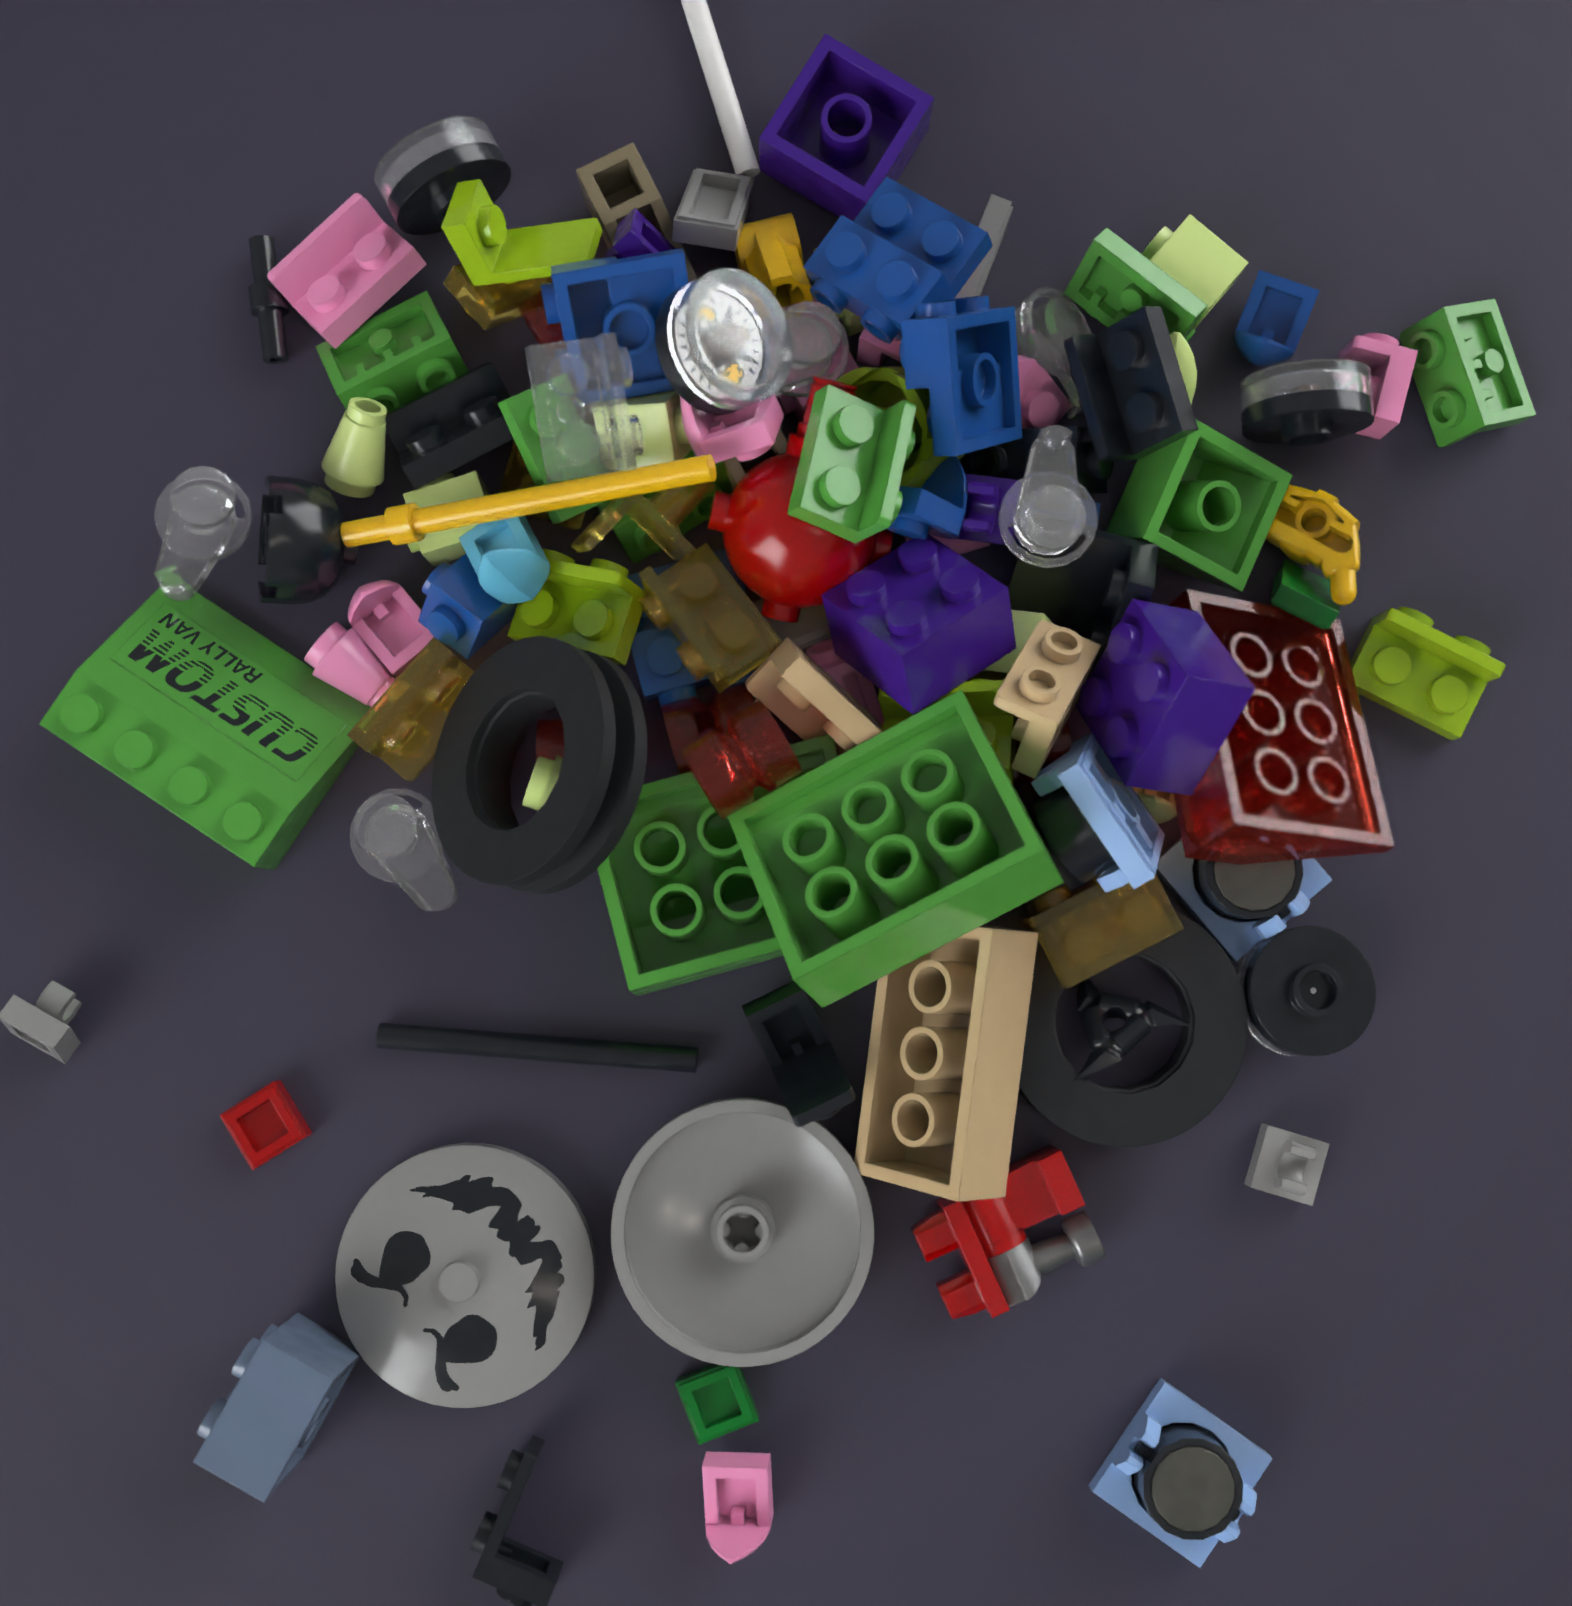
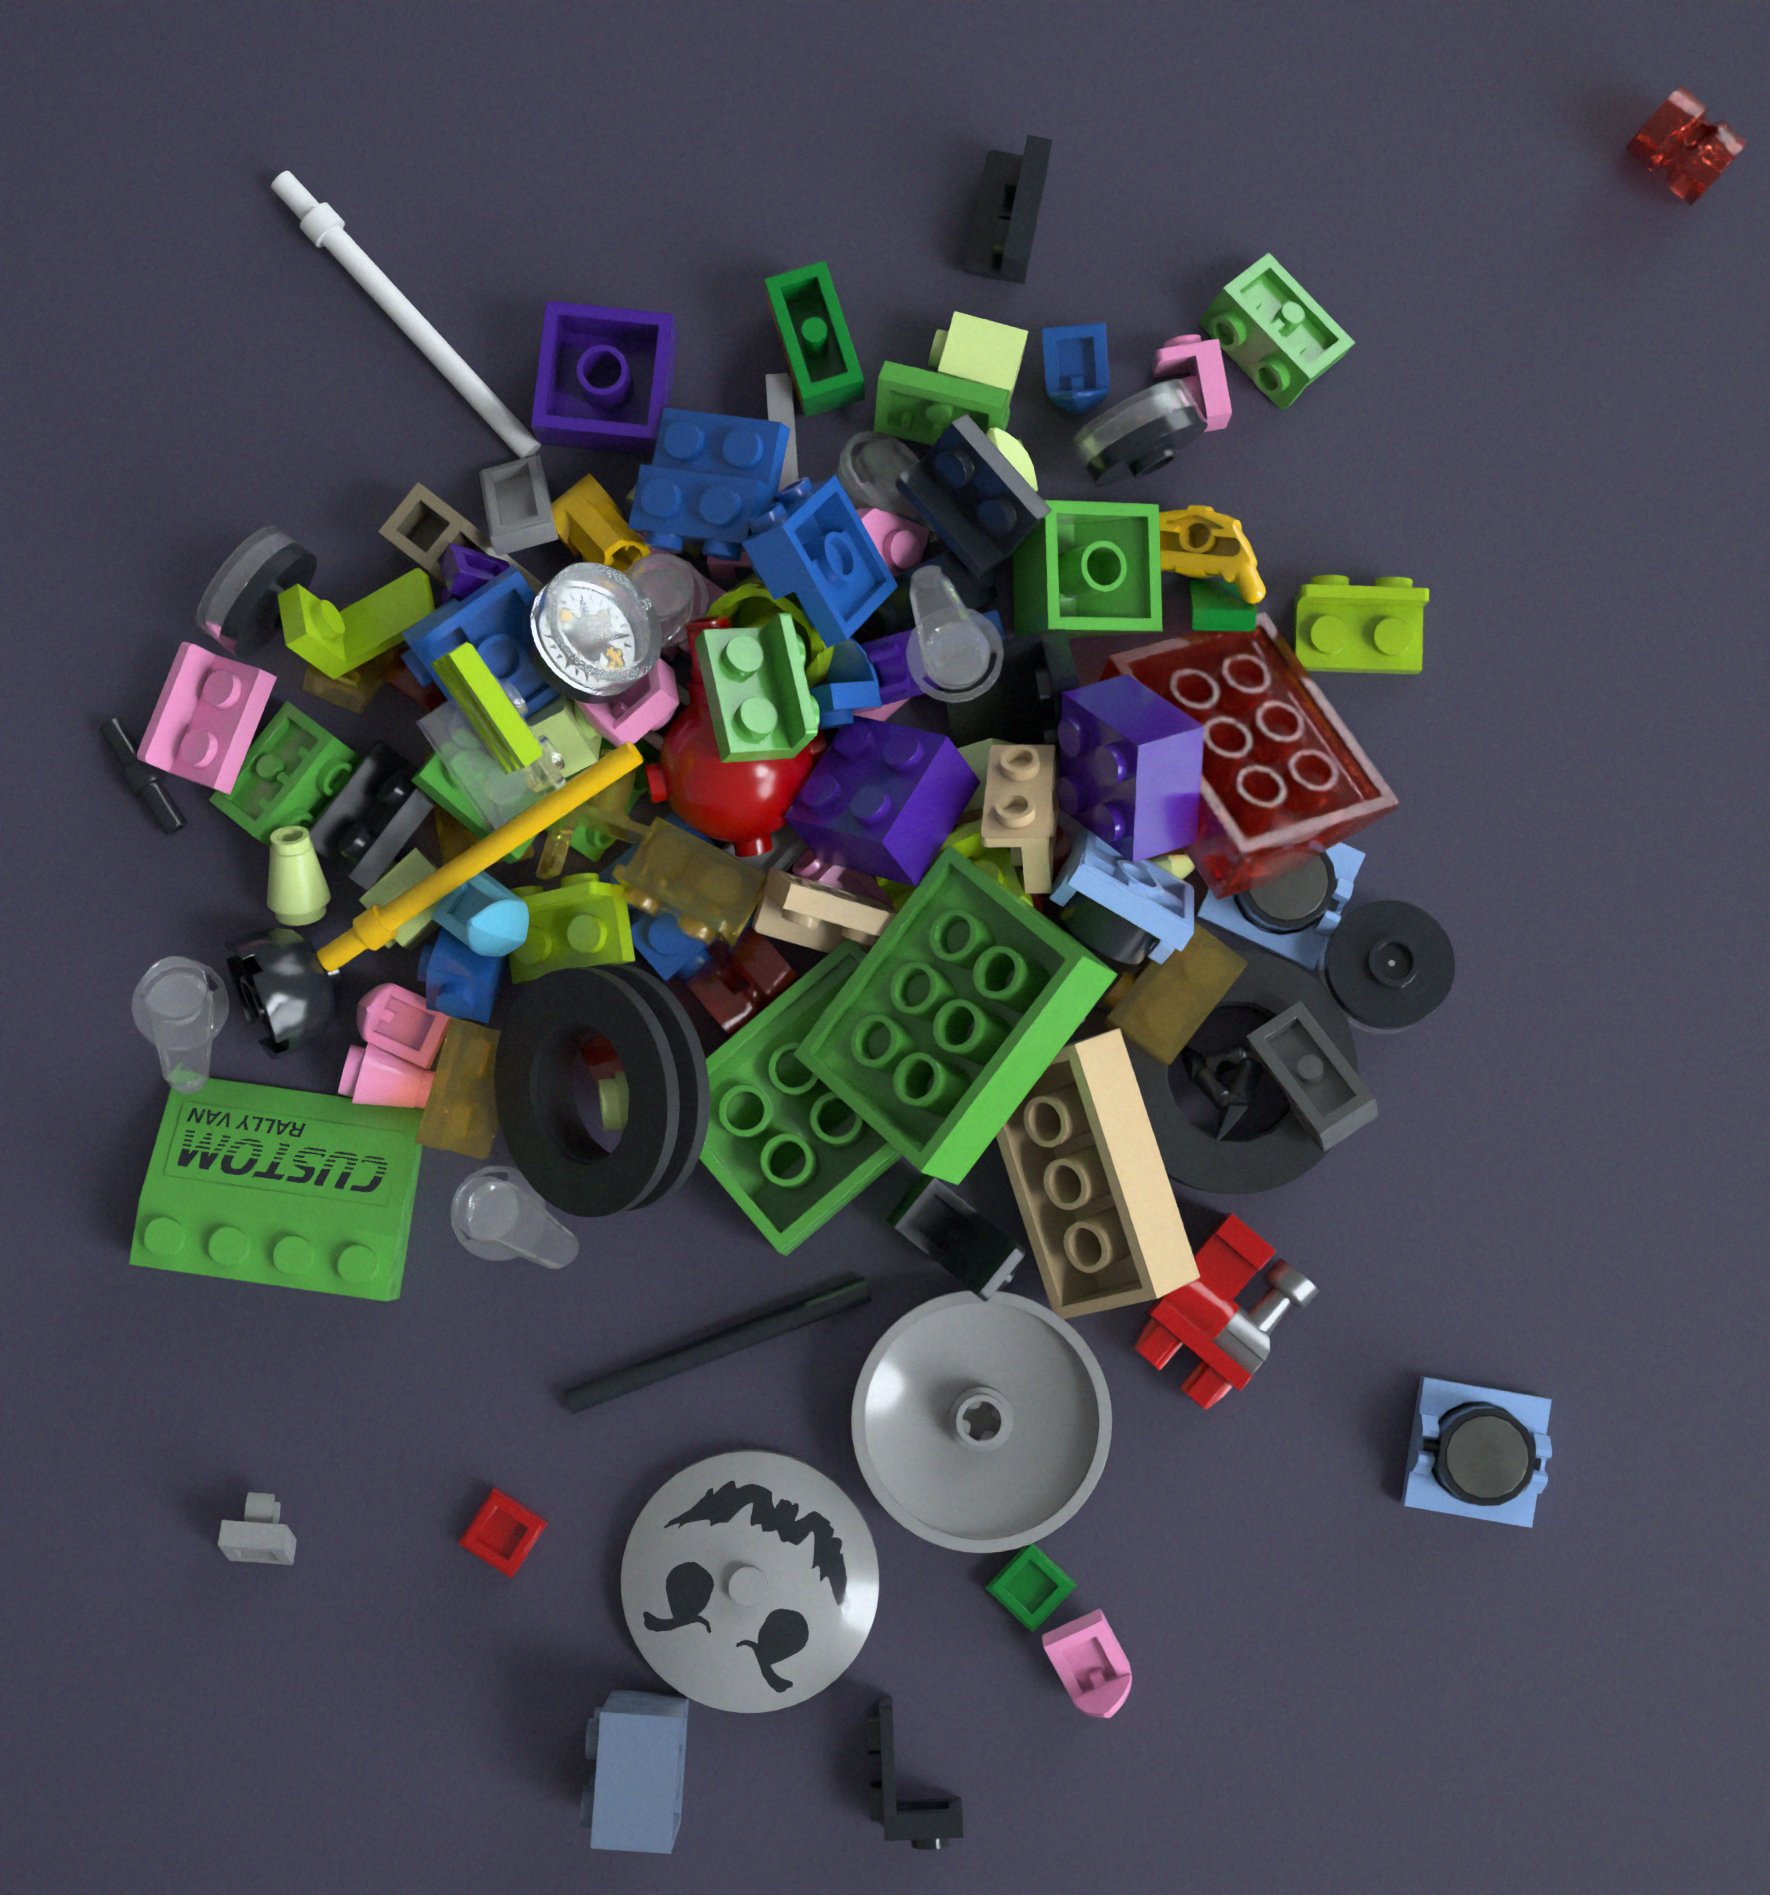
camera: 20 degrees left, 0 degrees up
(594, 359) = (487, 708): none -> lime tile
(740, 759) = (781, 998): clear red wheel -> none
(1050, 184) = (815, 339): none -> green brick
(1199, 1064) = (1314, 1076): none -> dark grey plate
(1277, 153) = (1008, 212): none -> black bracket
(1286, 1164) = (1444, 1130): light grey tile -> none

